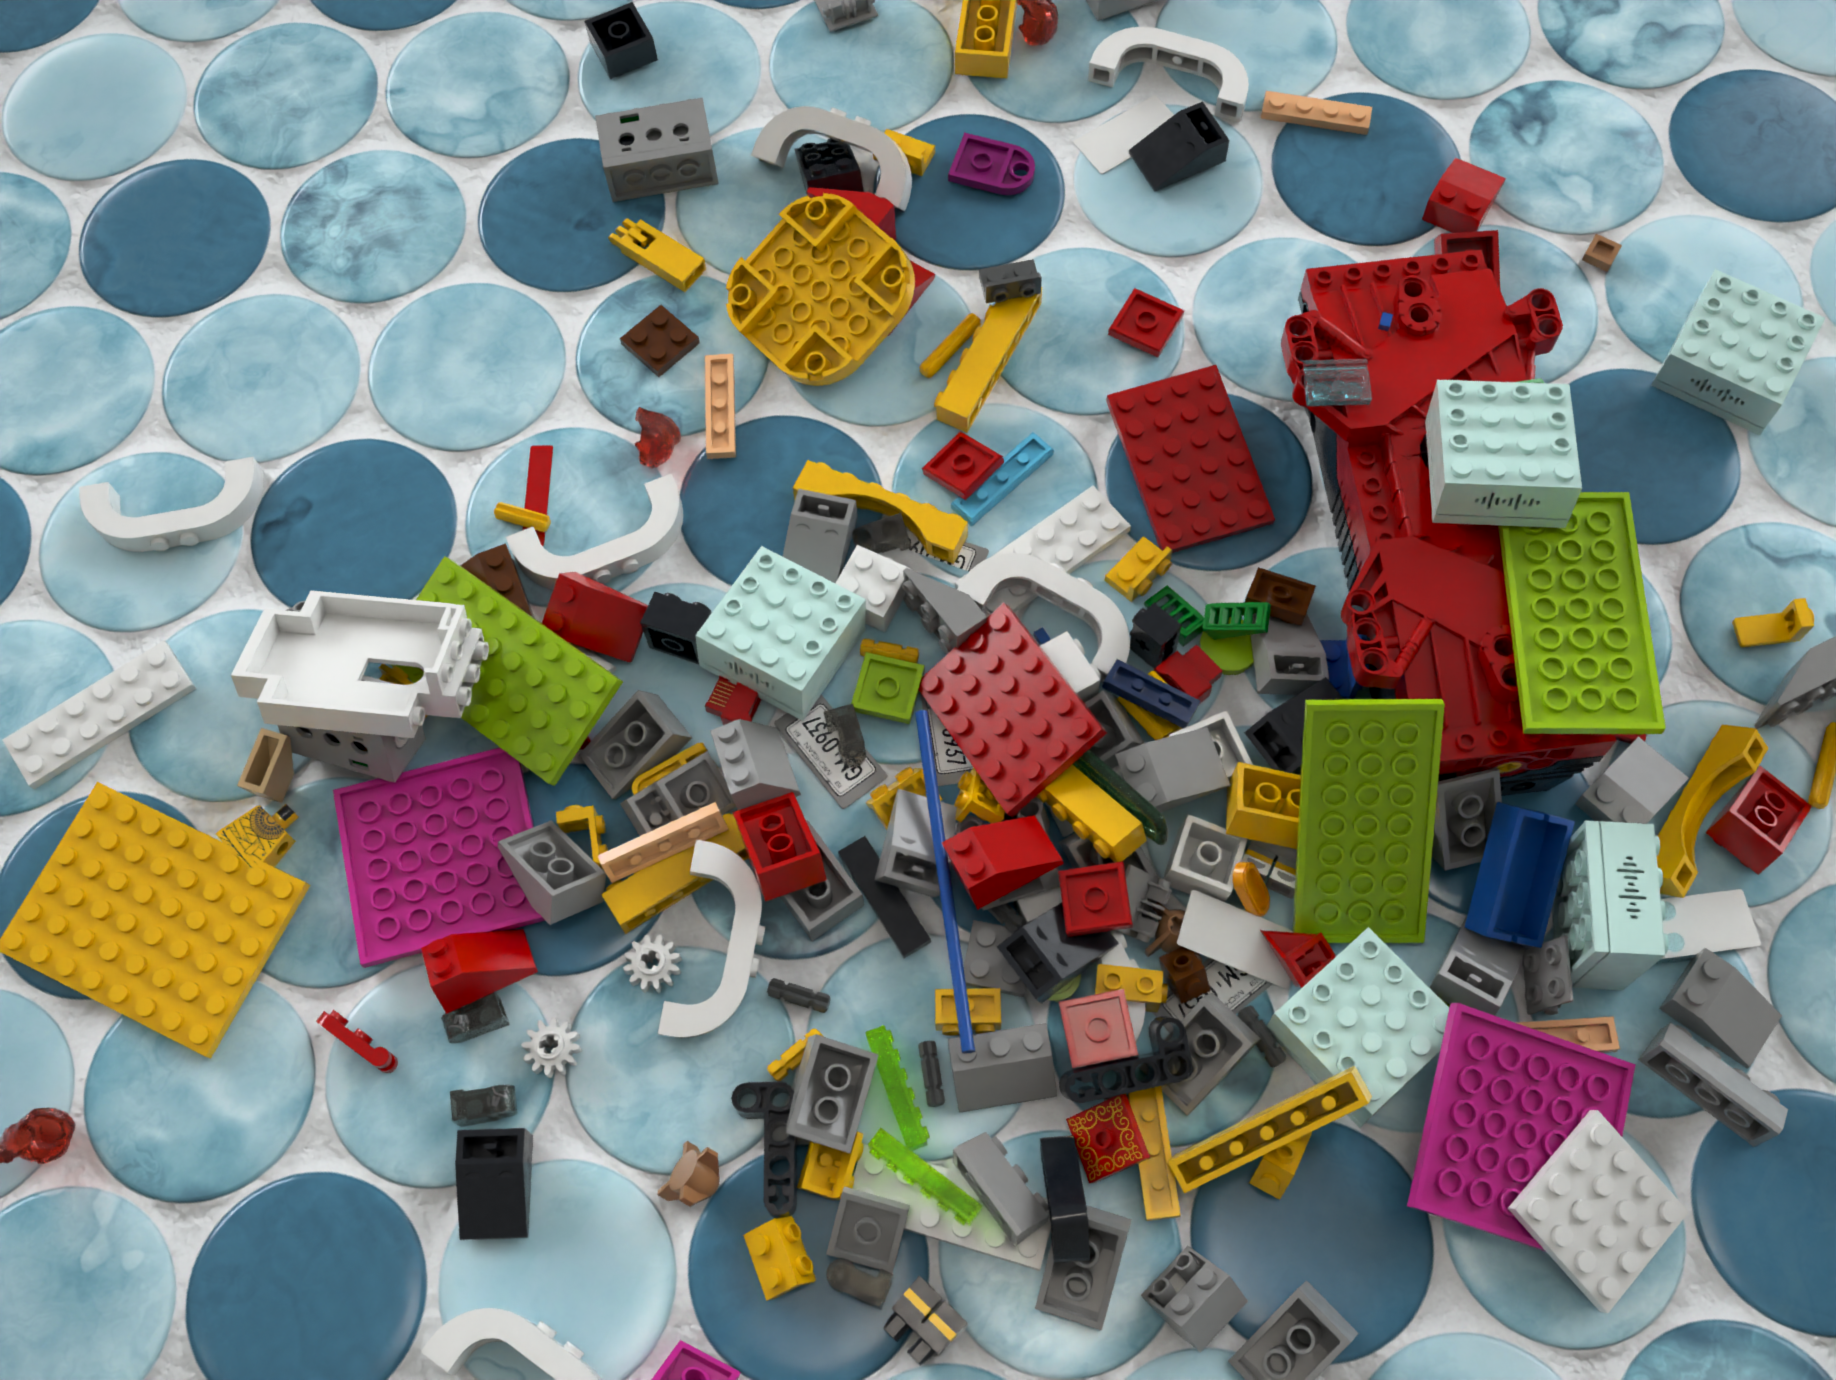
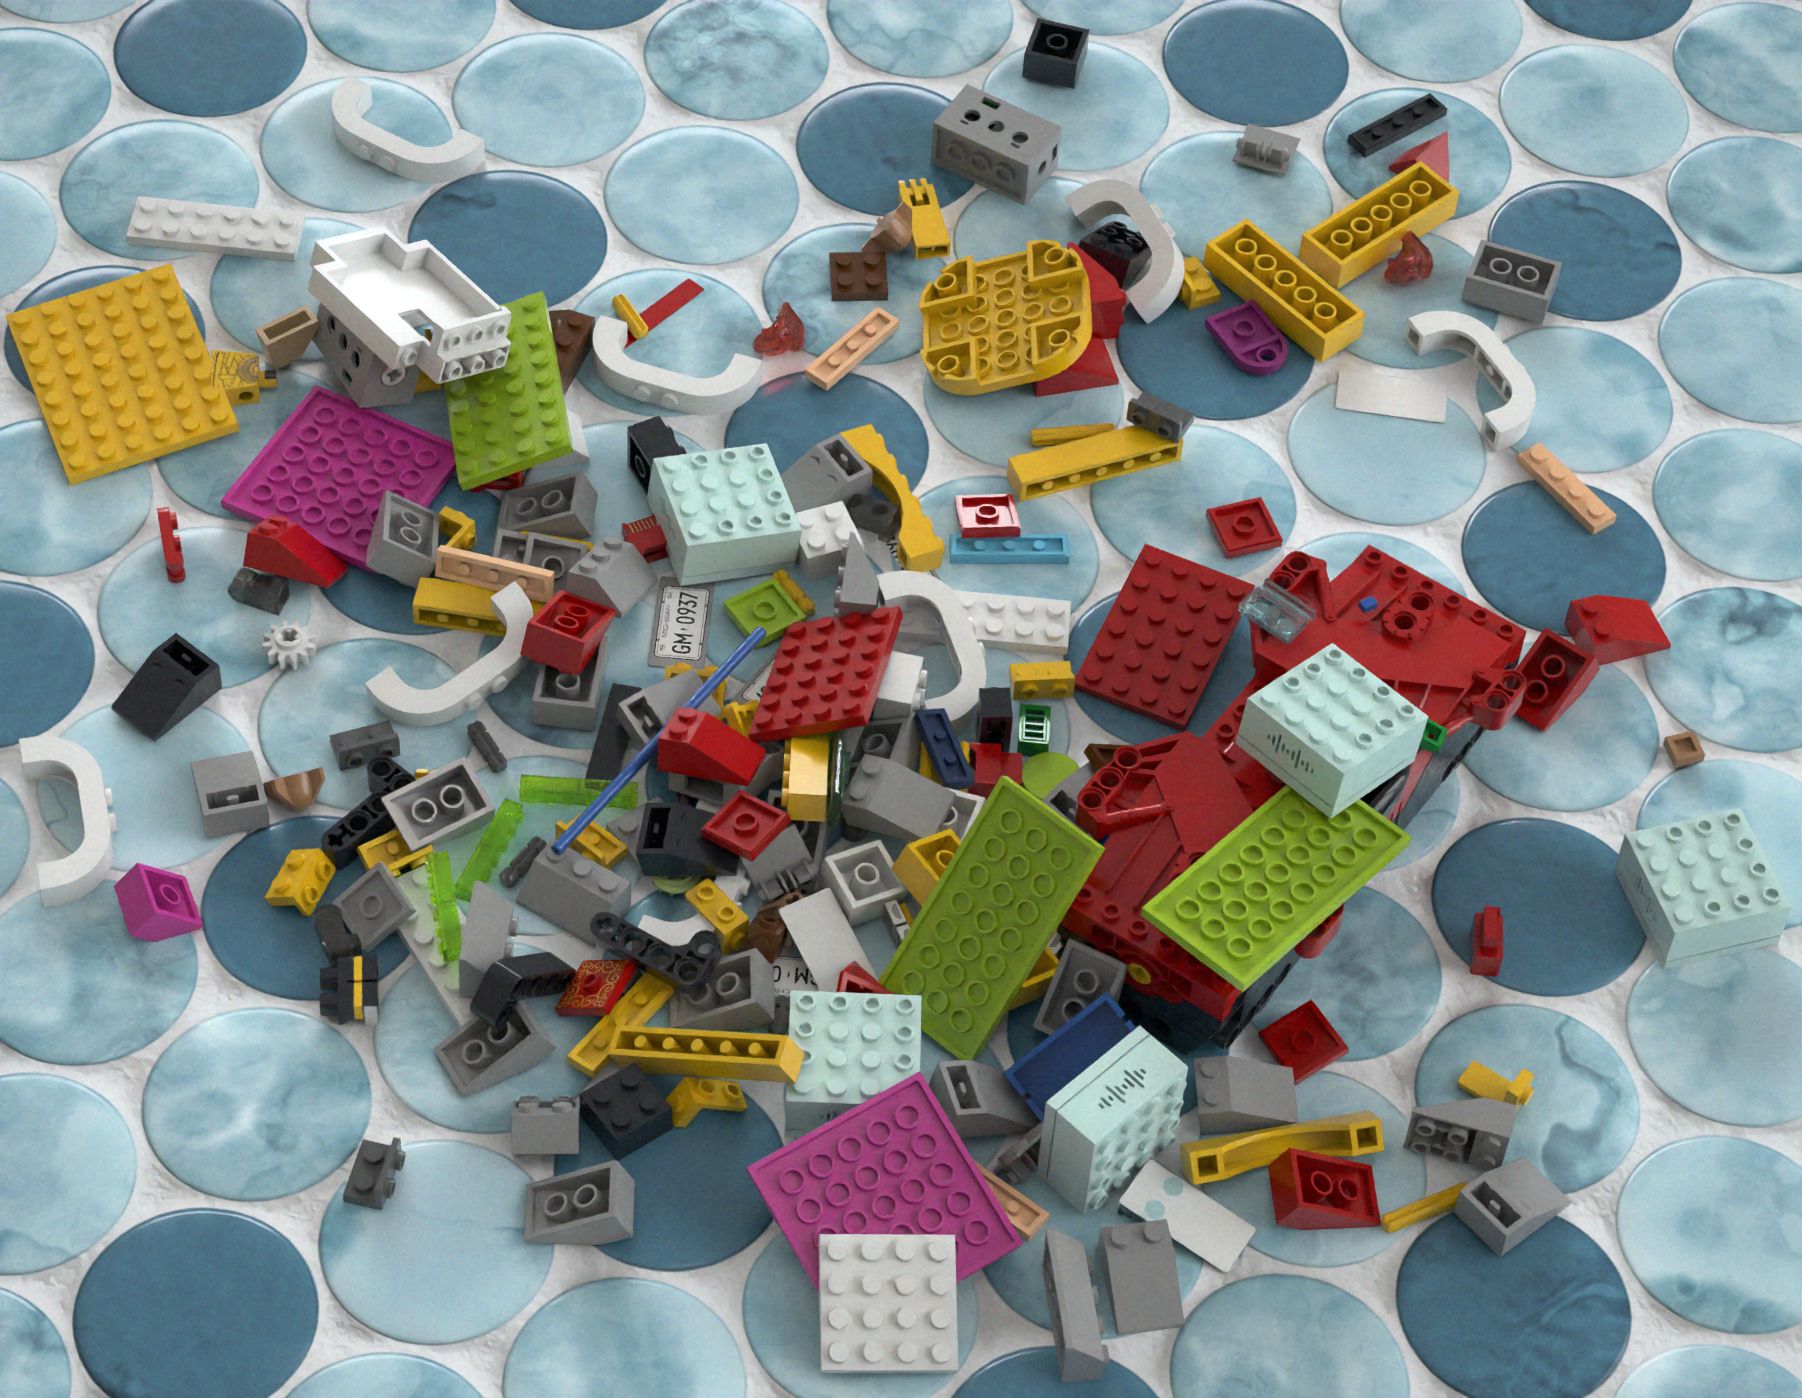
camera: 35 degrees right, 15 degrees down
(483, 1104) = (217, 645): clear smoke leg -> none
(595, 616) = (603, 407): red slope -> none
(640, 1229) = (230, 794): none -> light grey slope
(645, 954) = (410, 649): white gear -> none
(650, 284) = (892, 232): none -> medium nougat piece
(702, 1082) = (362, 744): none -> dark grey bracket
(851, 742) = (703, 618): clear smoke leg -> none
(905, 975) = (573, 791): none -> clear neon green piece
(980, 105) = (1284, 290): none -> yellow brick
(1098, 1028) = (663, 908): plate -> none
(1181, 147) = (1415, 429): black slope -> none
(1217, 619) = (1065, 753): green slope -> none
(1240, 1226) = (625, 1111): none -> black brick
(1251, 888) = (875, 925): light orange tile -> none
(1653, 516) = (1486, 942): none -> red piece

